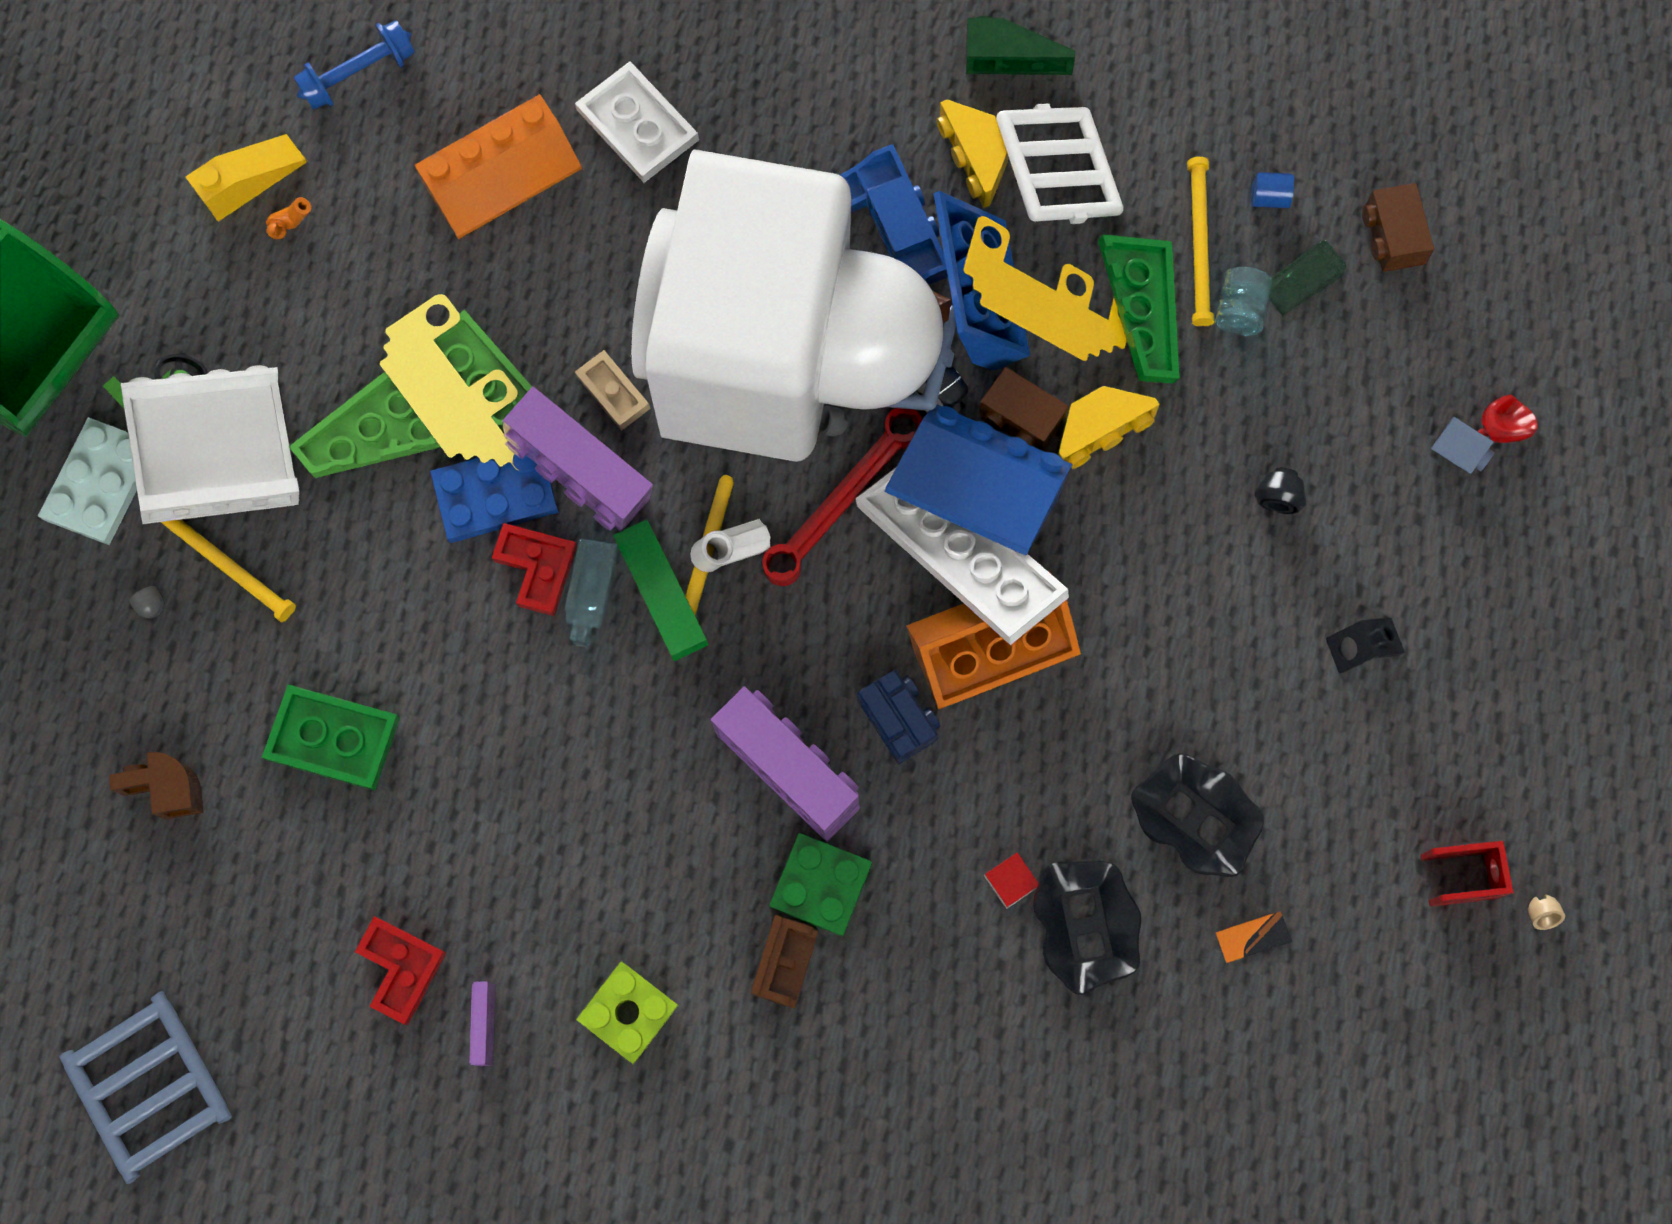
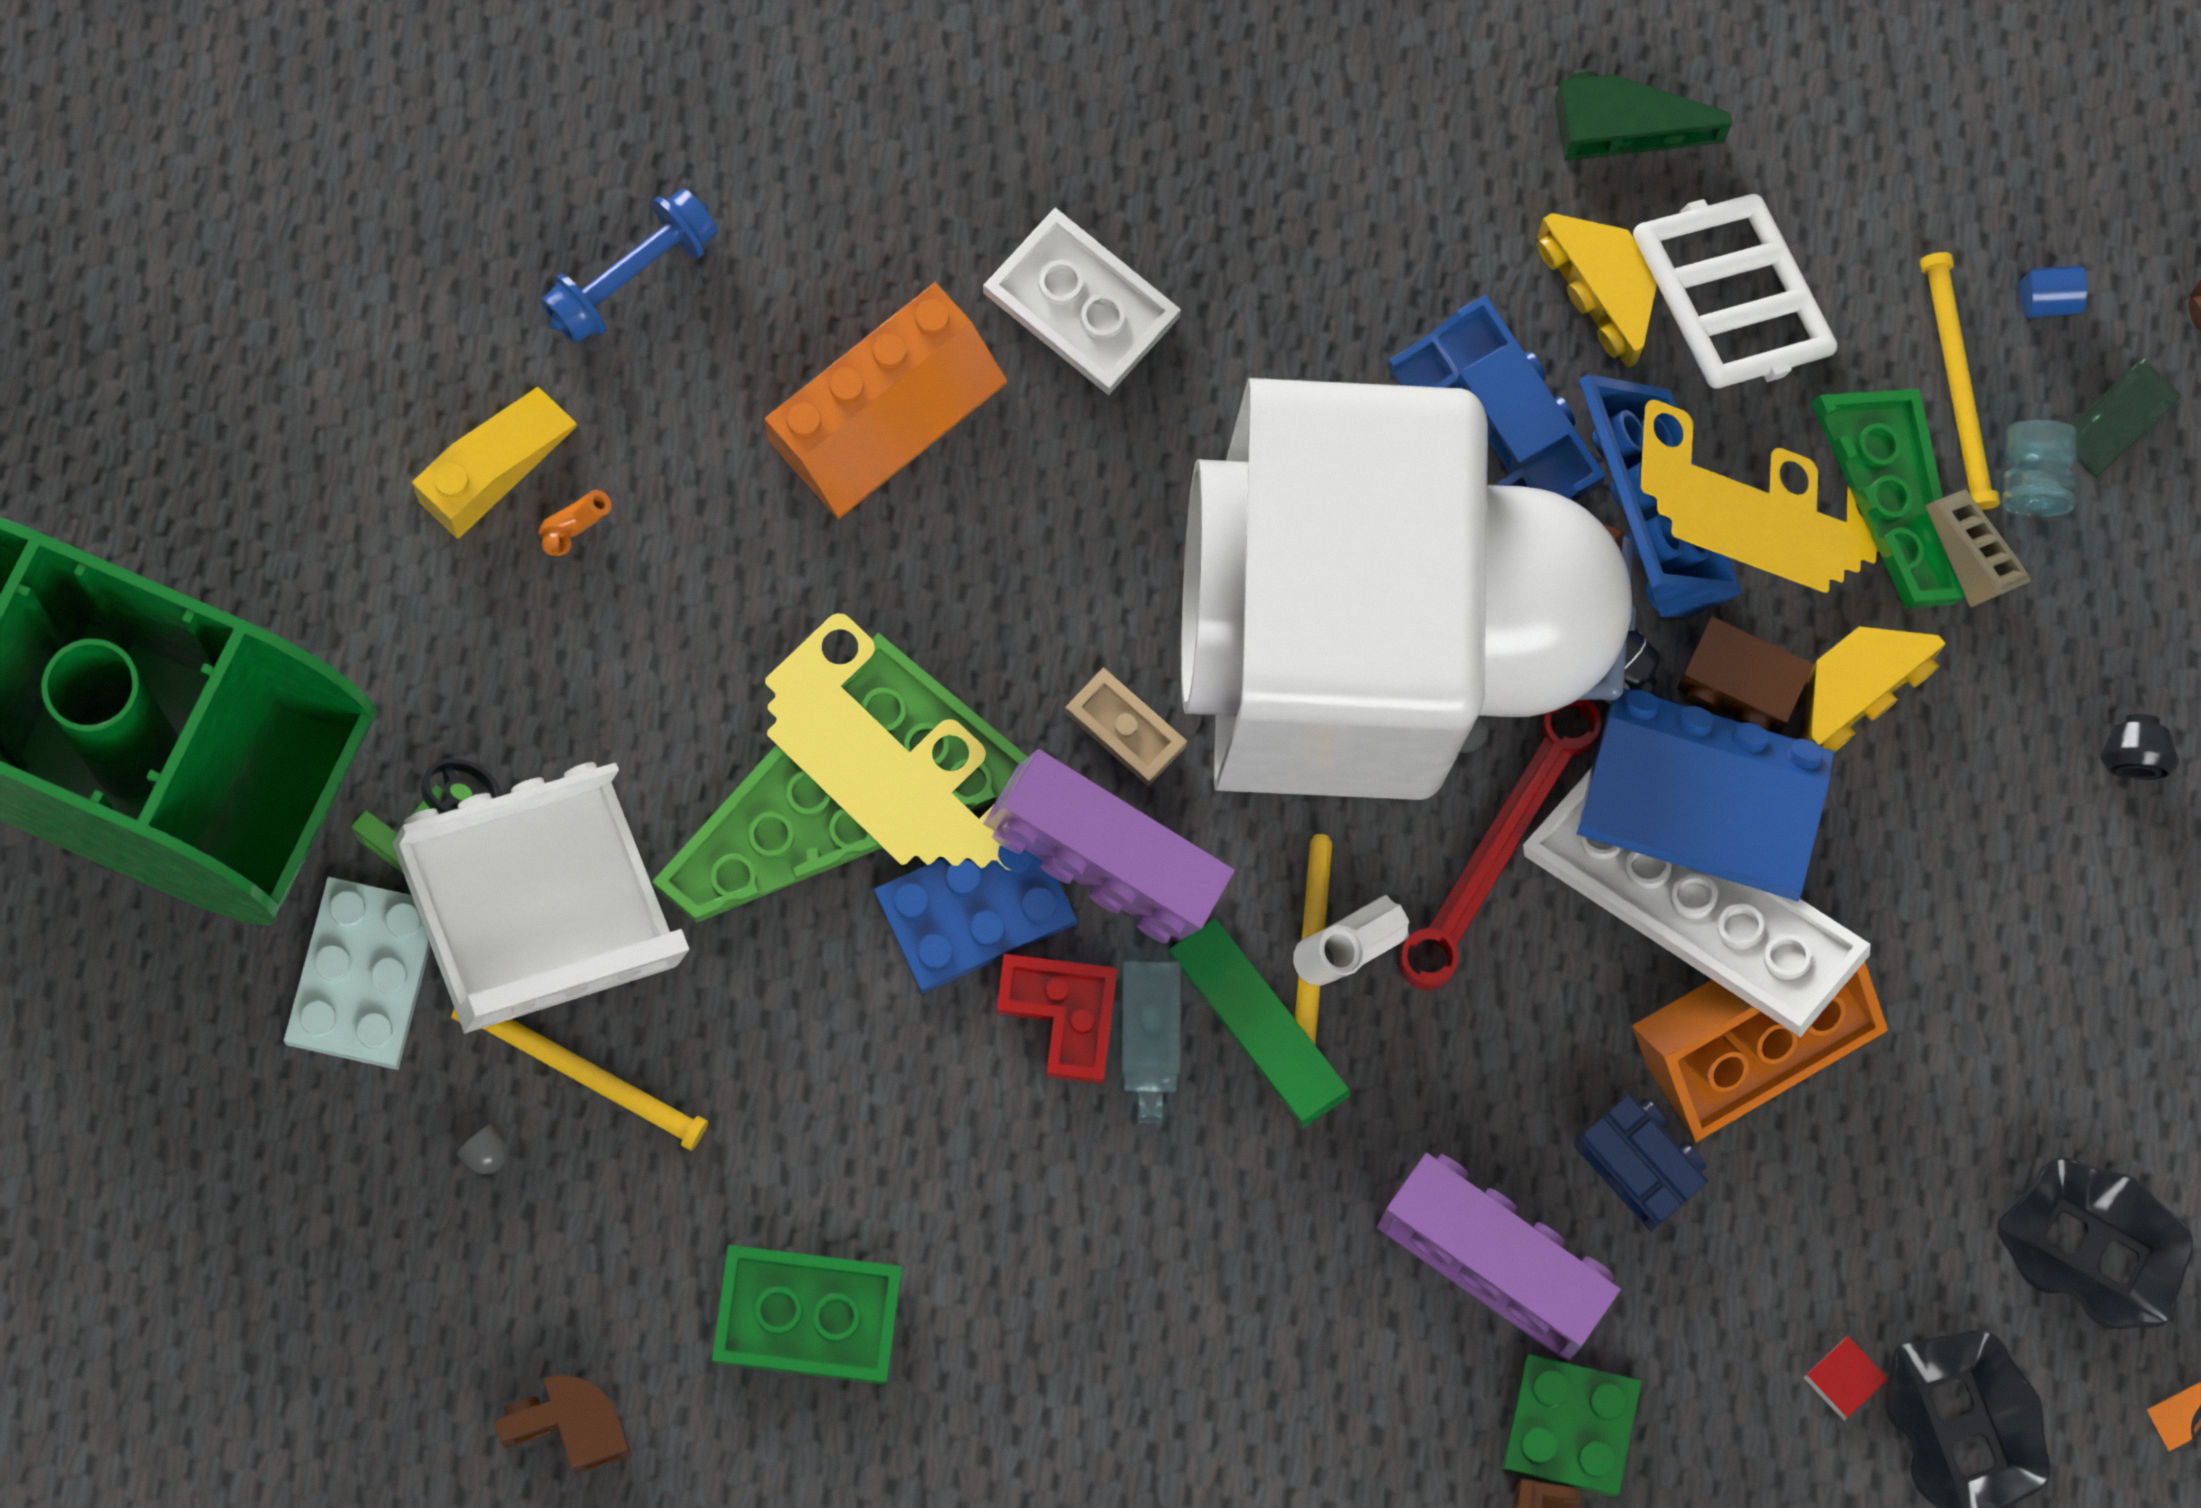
camera: 20 degrees left, 0 degrees up
(1192, 354) = (1975, 549): none -> dark tan slope

